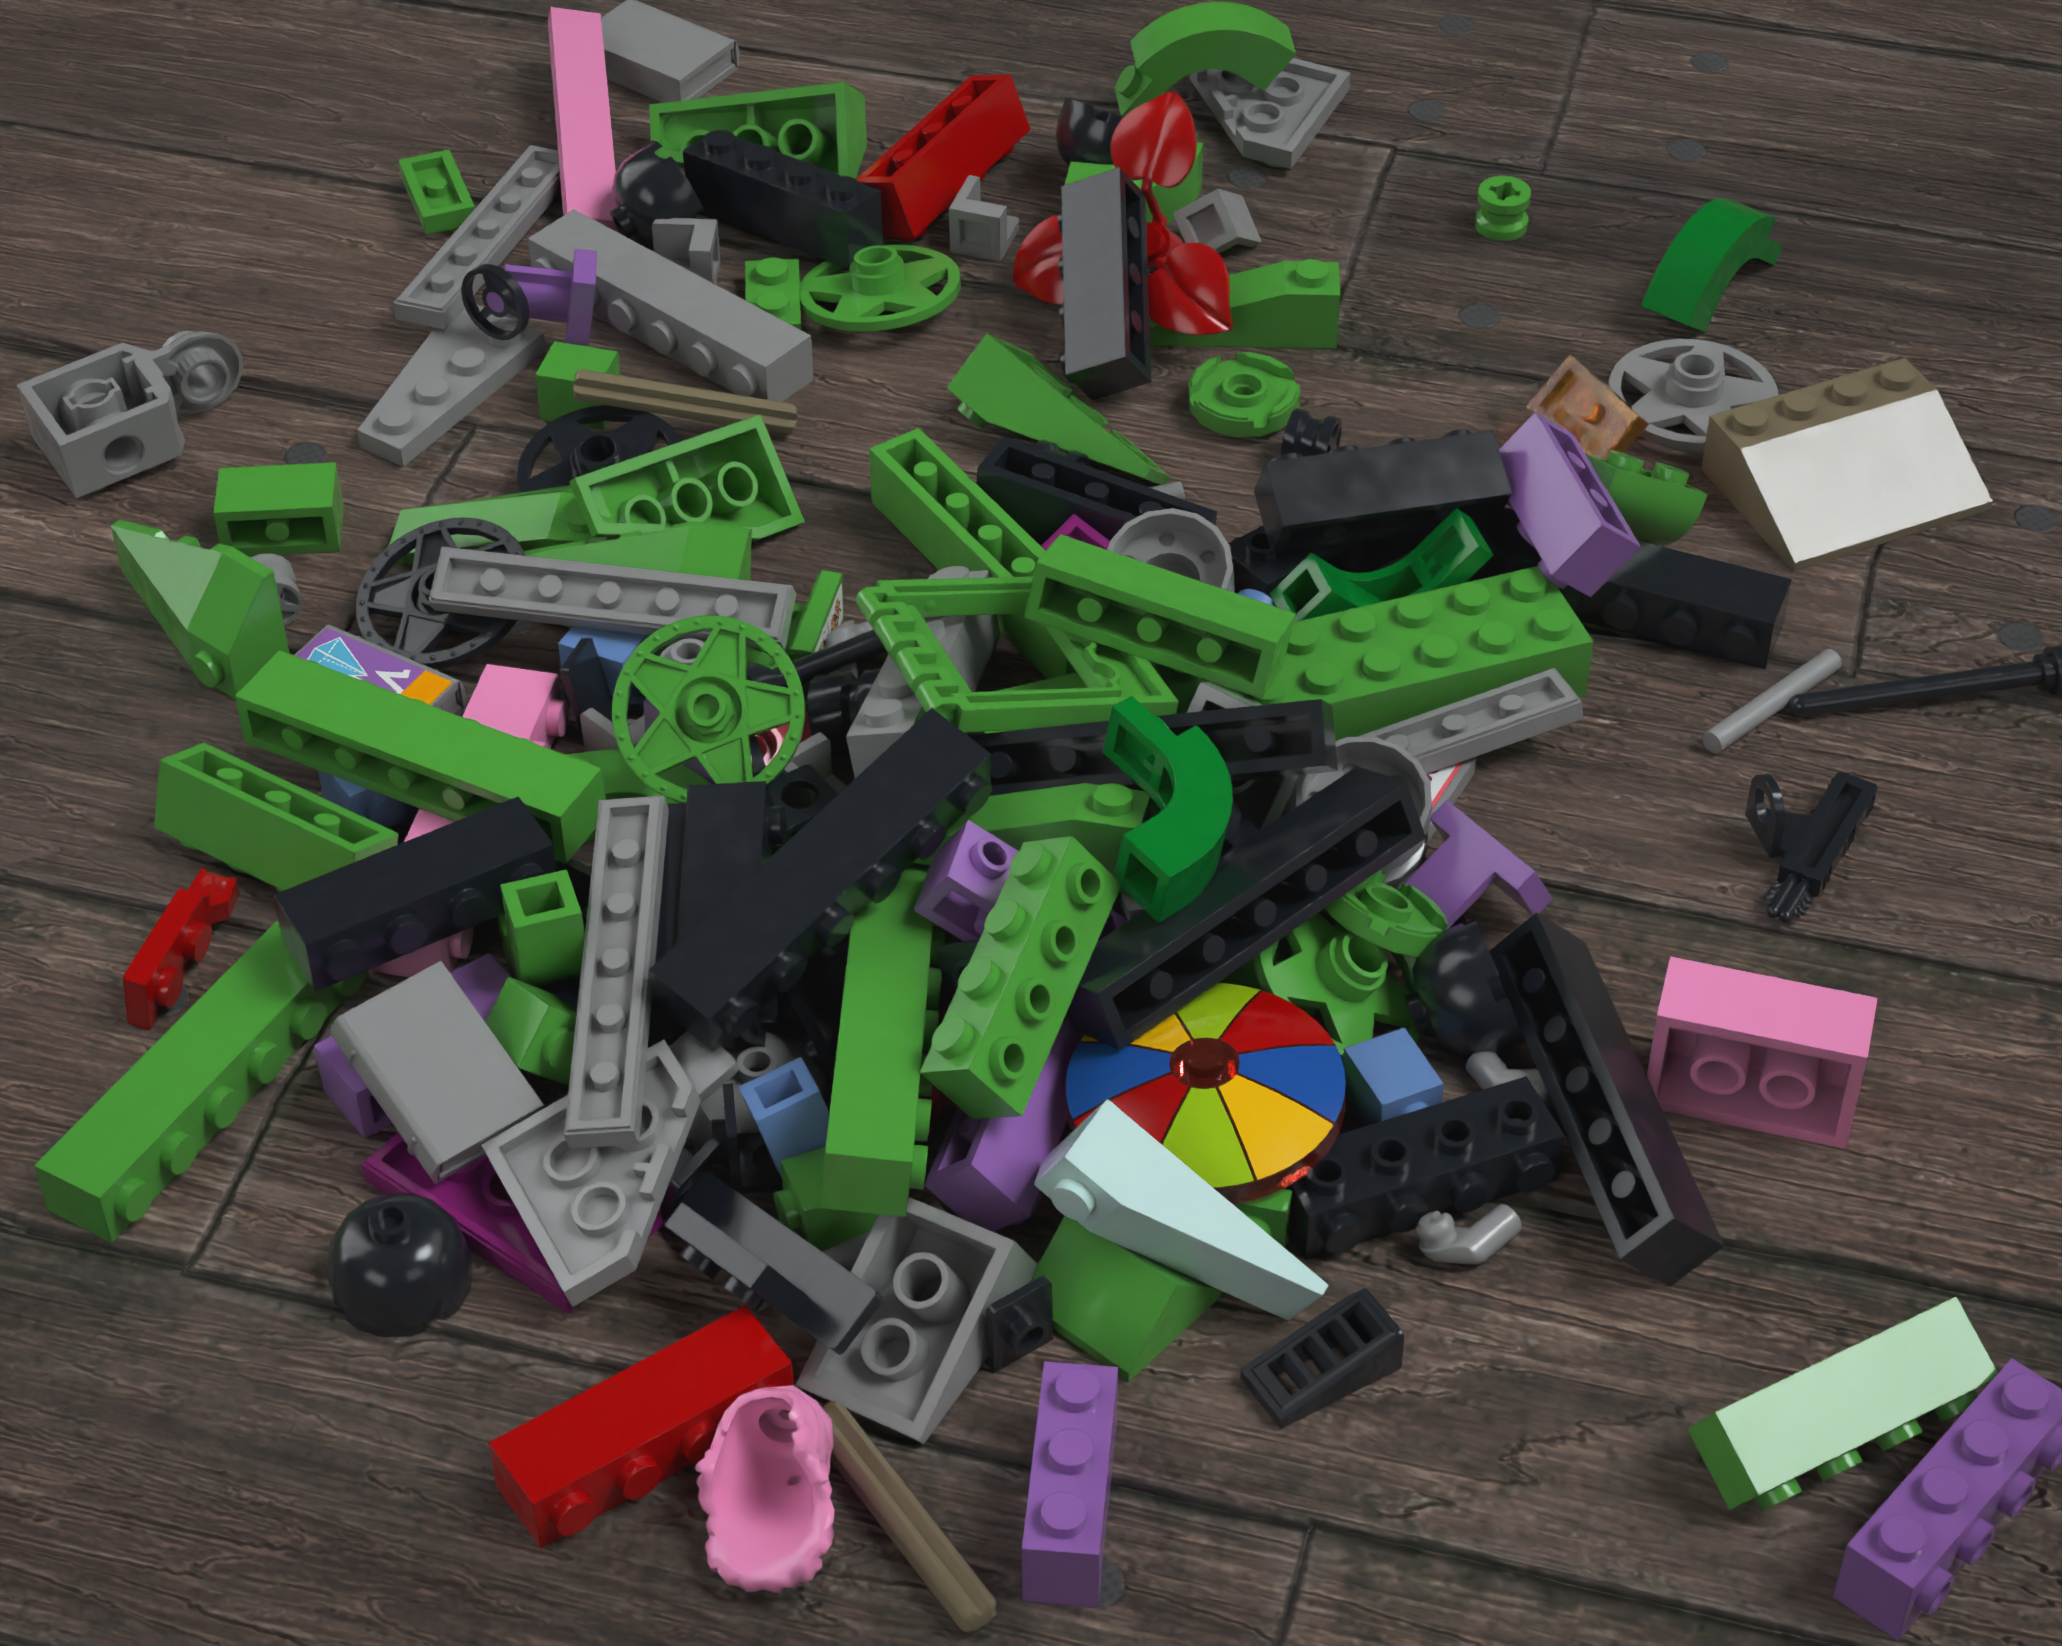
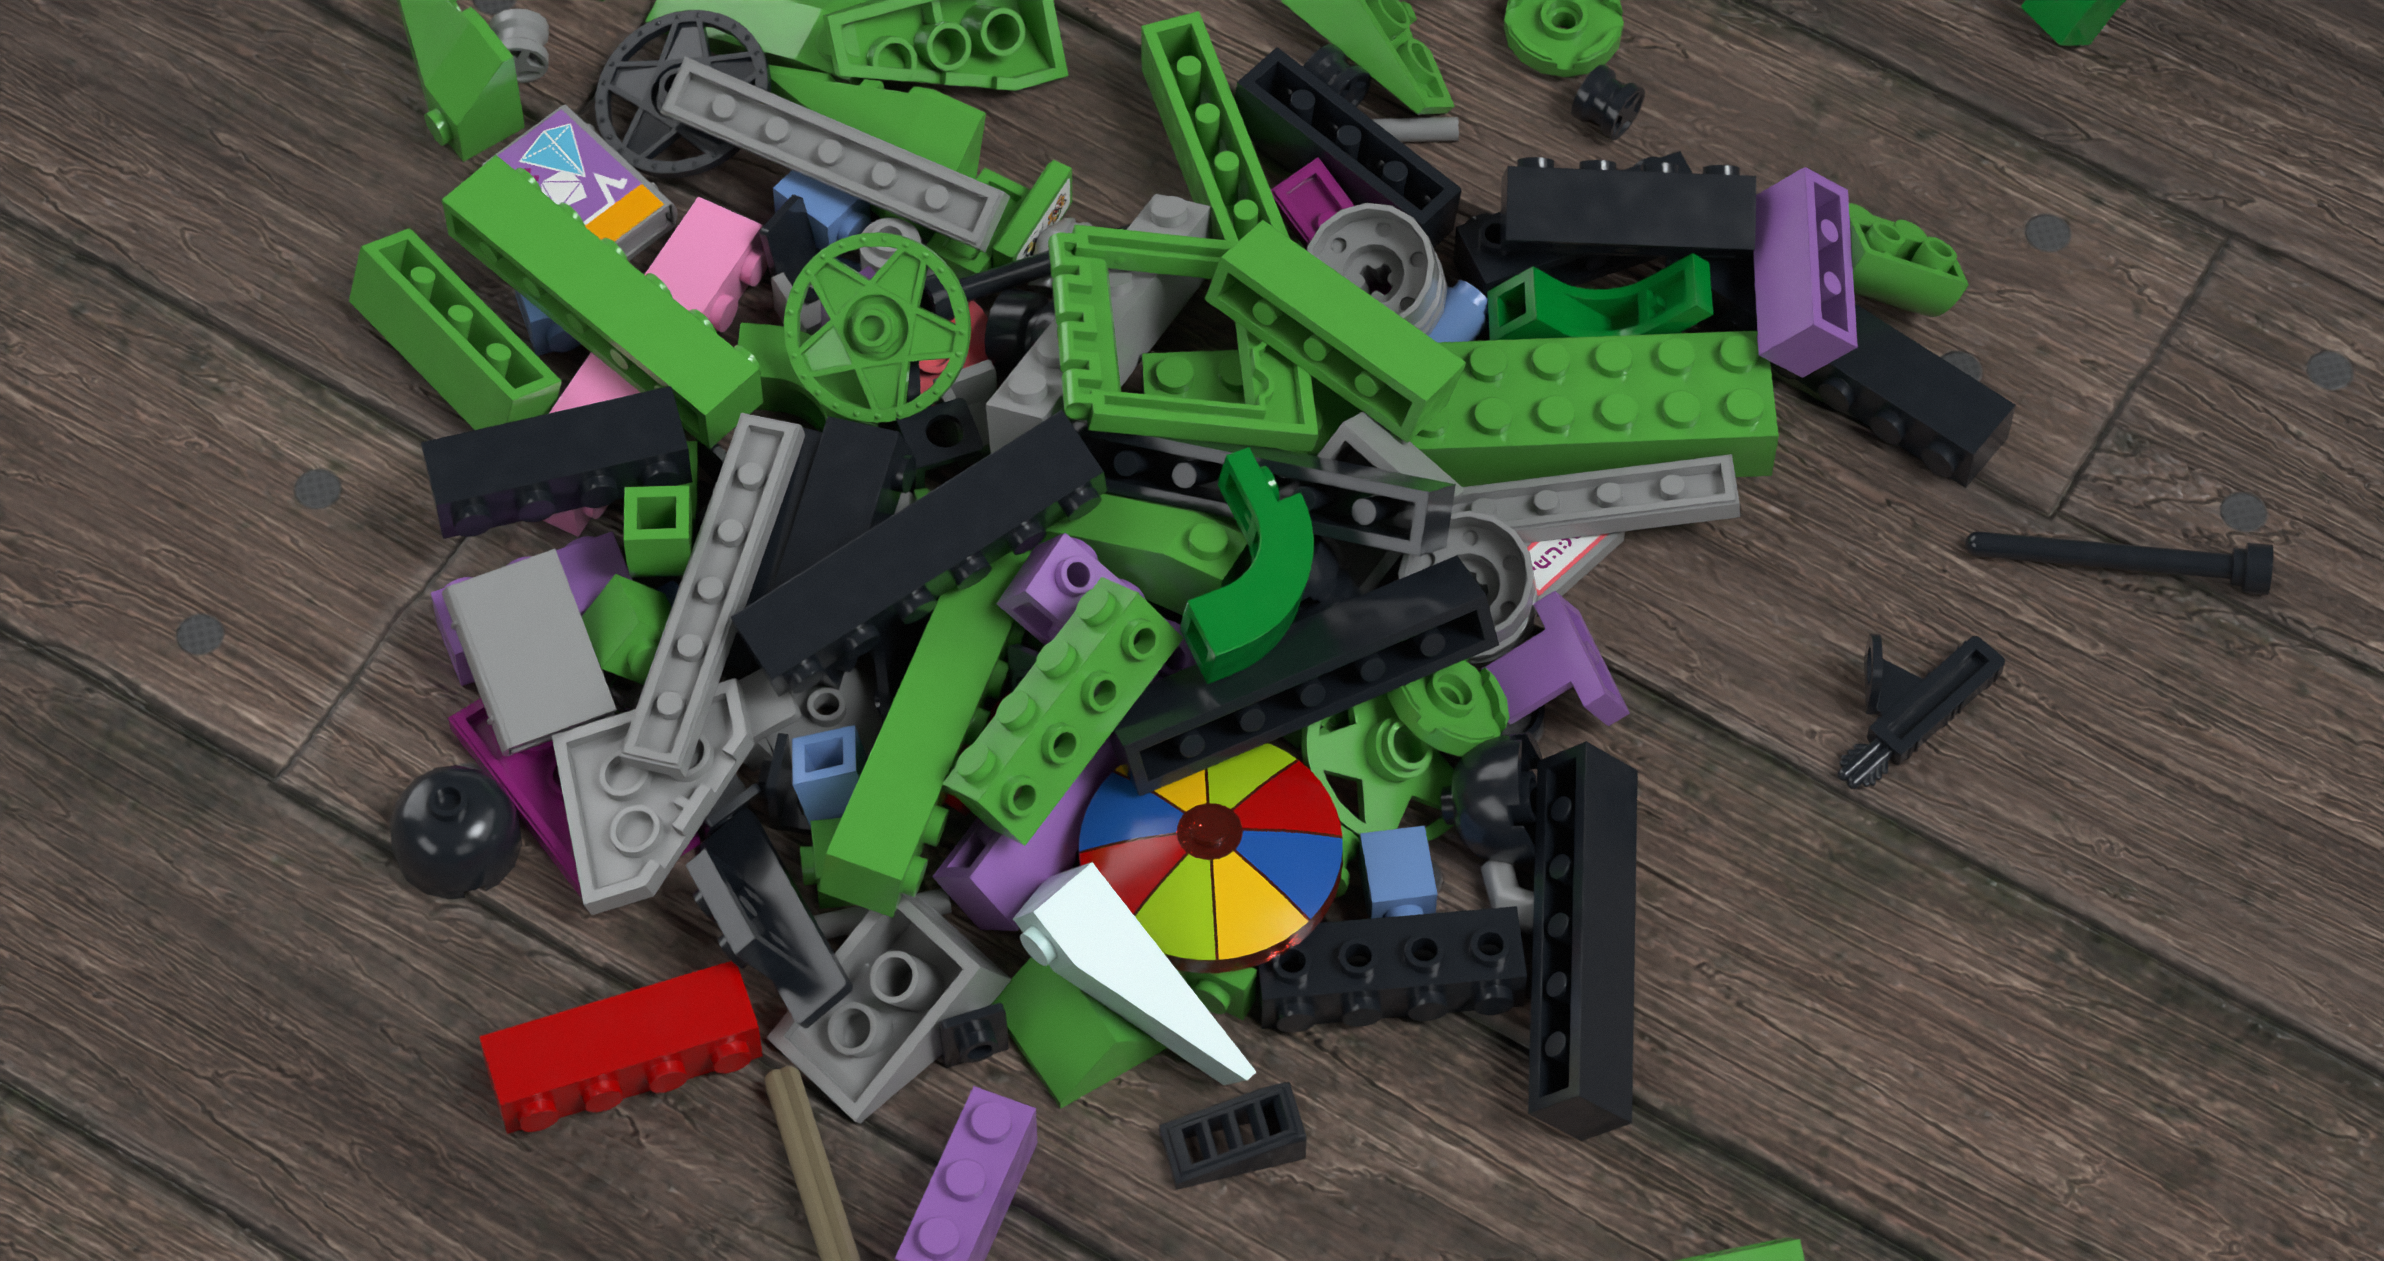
camera: 15 degrees right, 15 degrees up
(175, 941) = (340, 436): red hinge -> none
(185, 1089) = (310, 602): bright green brick -> none
(768, 1490) = (705, 1140): bright pink piece -> none
(1466, 1245) = (1408, 1054): light grey arm -> none
(1588, 409) = (1894, 150): clear orange bracket -> none
(1688, 387) = (2032, 132): light grey wheel -> none
(1760, 1051) = (1744, 935): bright pink brick -> none
(1771, 701) = (1951, 531): light grey bar -> none
(1844, 464) = (2149, 265): slope -> none

